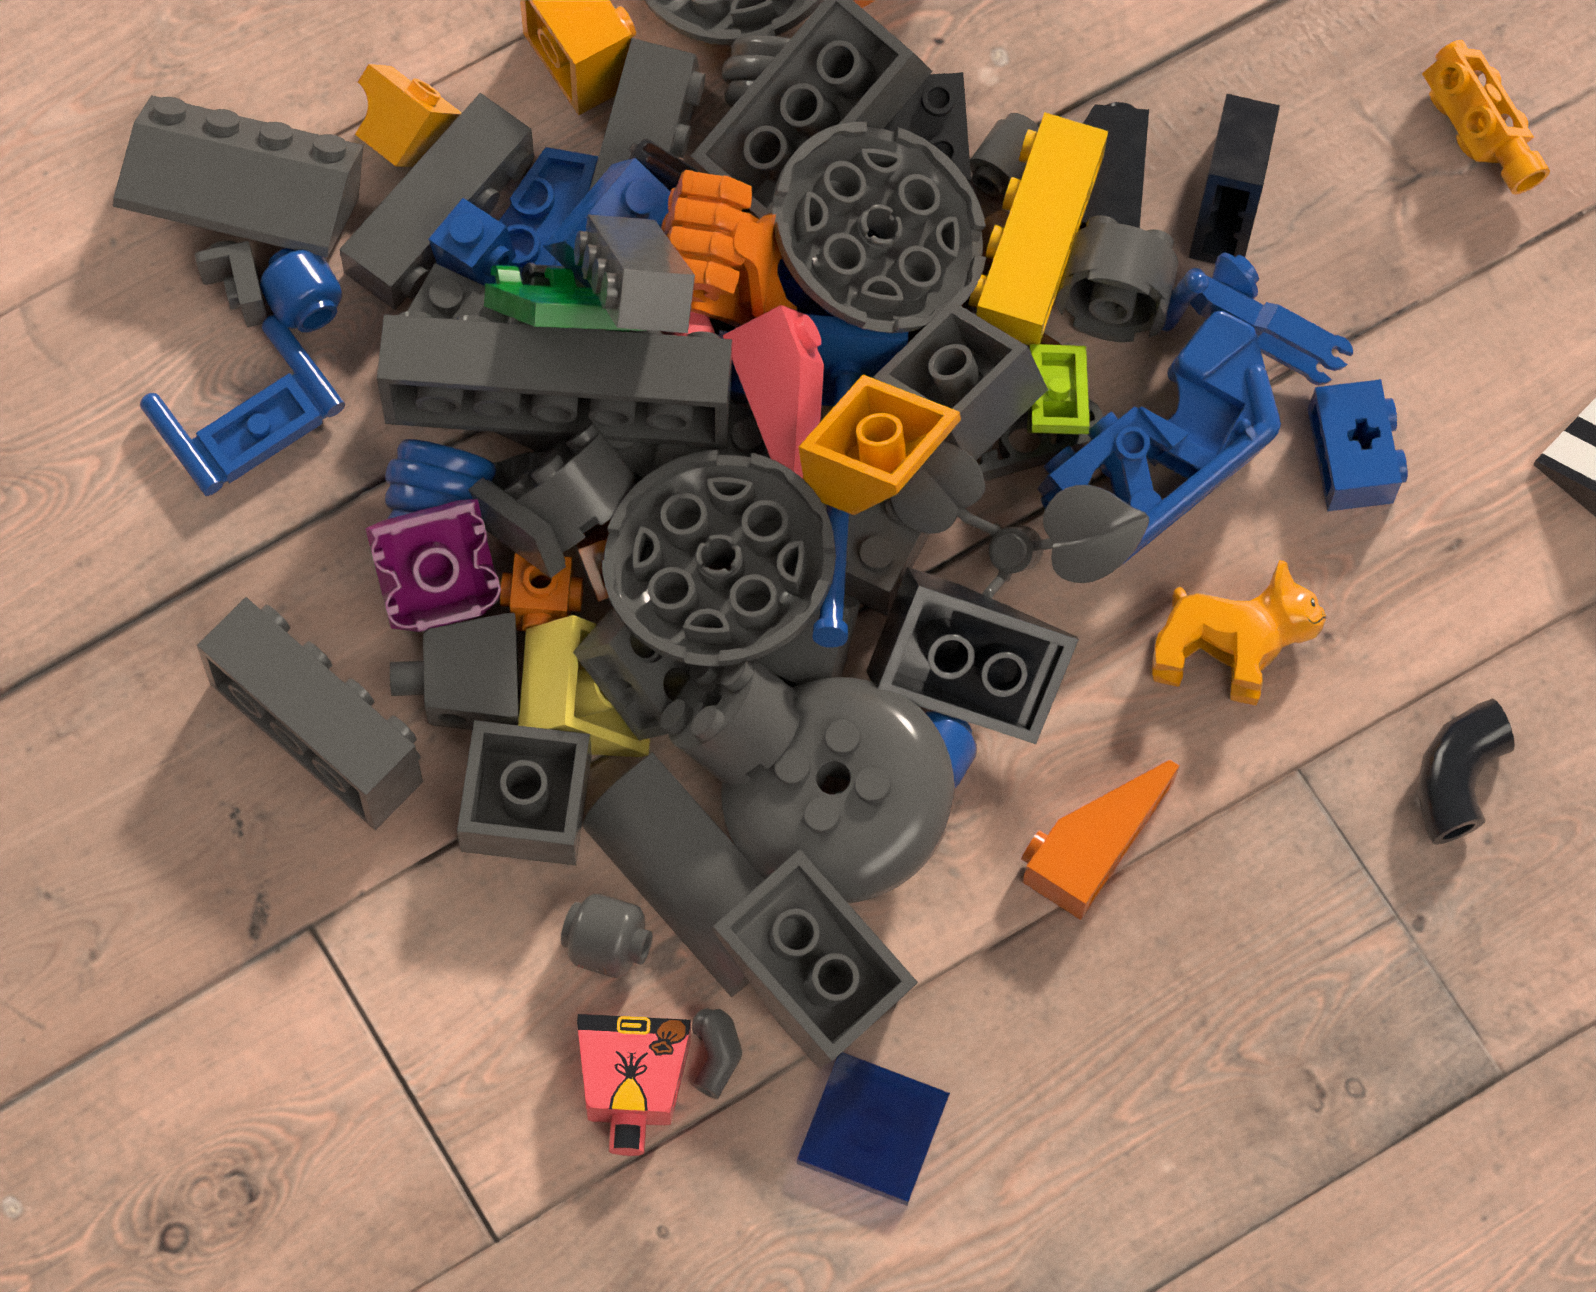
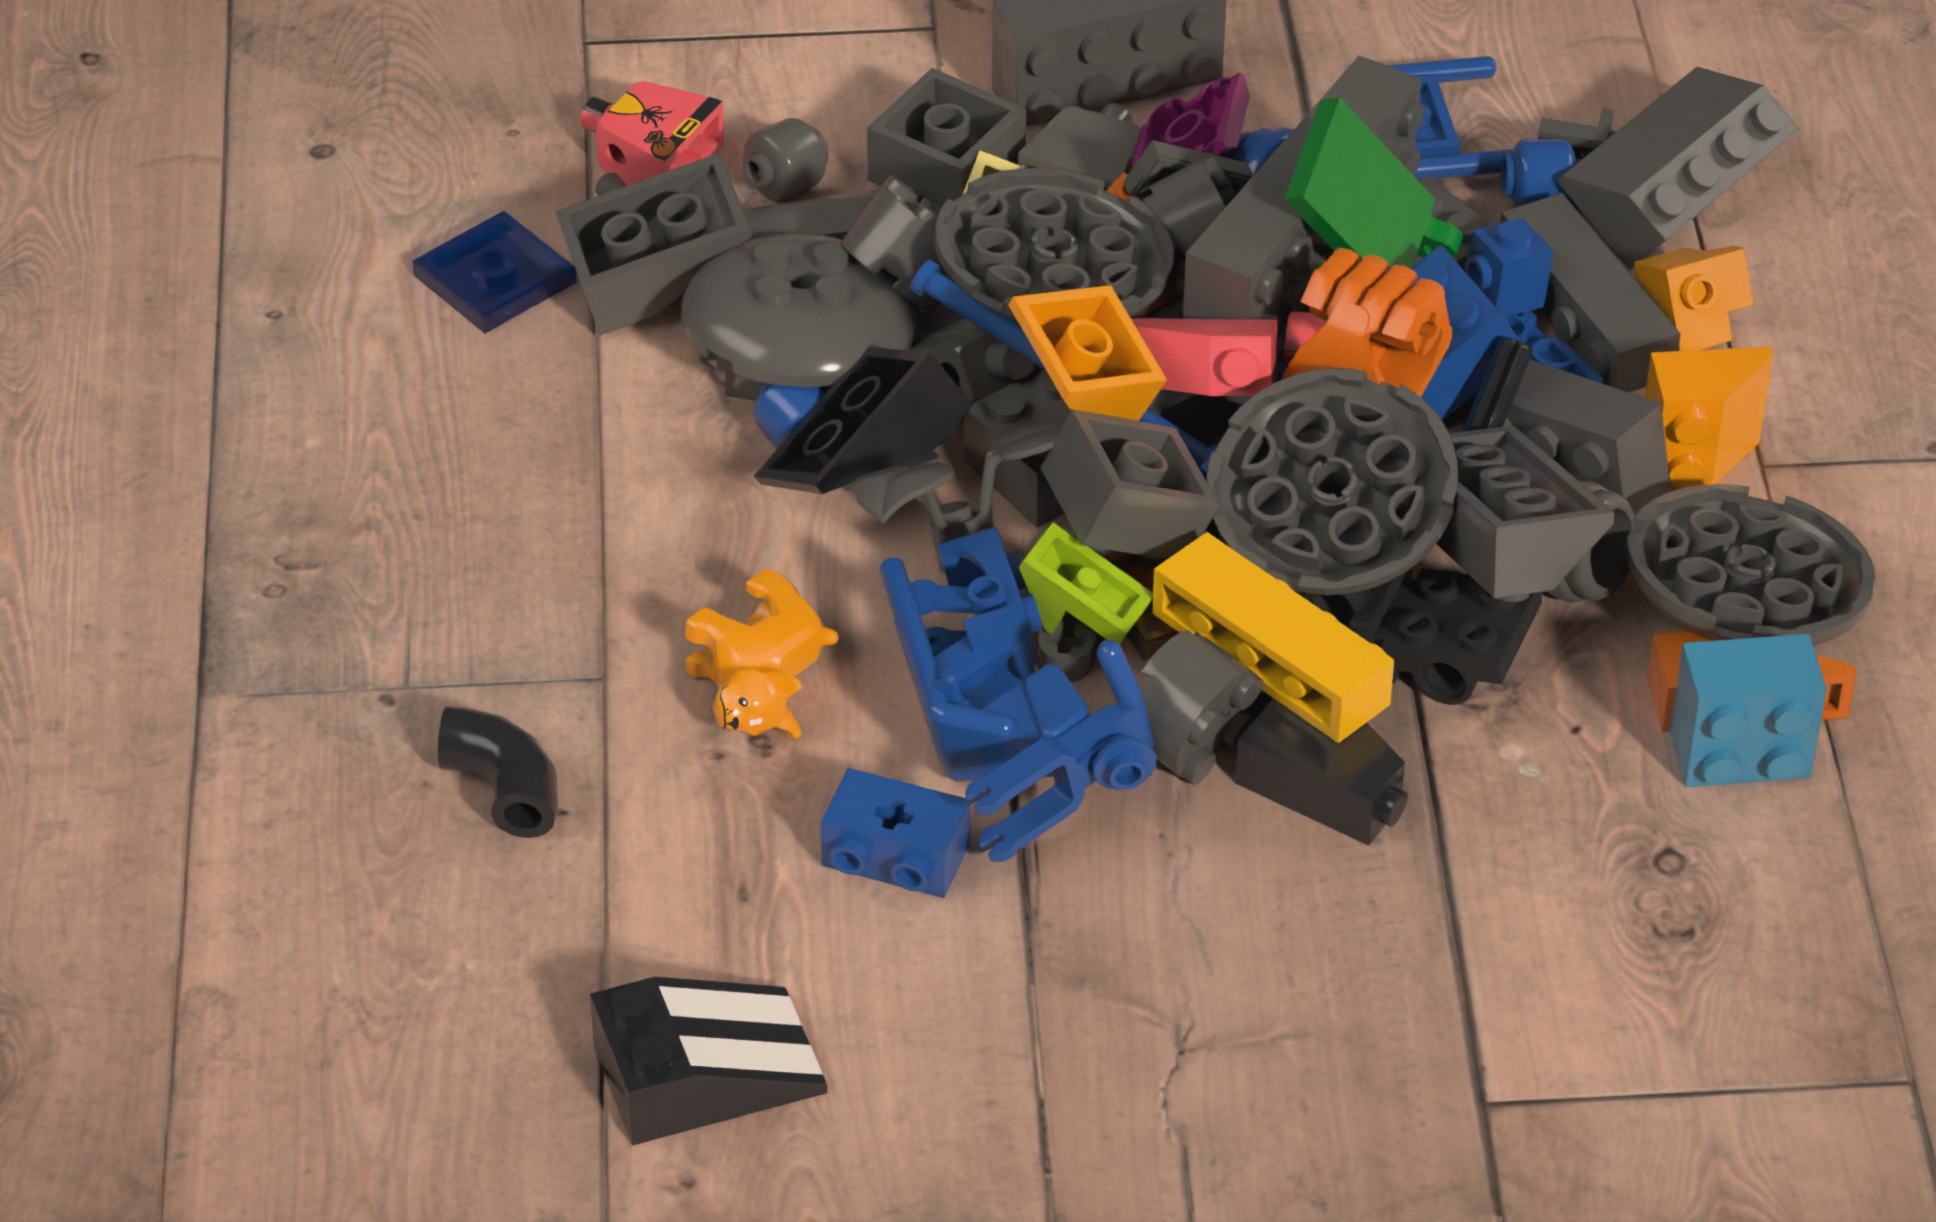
camera: 120 degrees right, 25 degrees down
(636, 273) = (1335, 183): dark grey brick -> none
(999, 154) = (1413, 709): dark grey brick -> none
(1091, 841) = (625, 475): orange slope -> none
(1234, 178) = (1261, 856): black slope -> none
(1481, 115) = (1220, 1100): light orange brick -> none

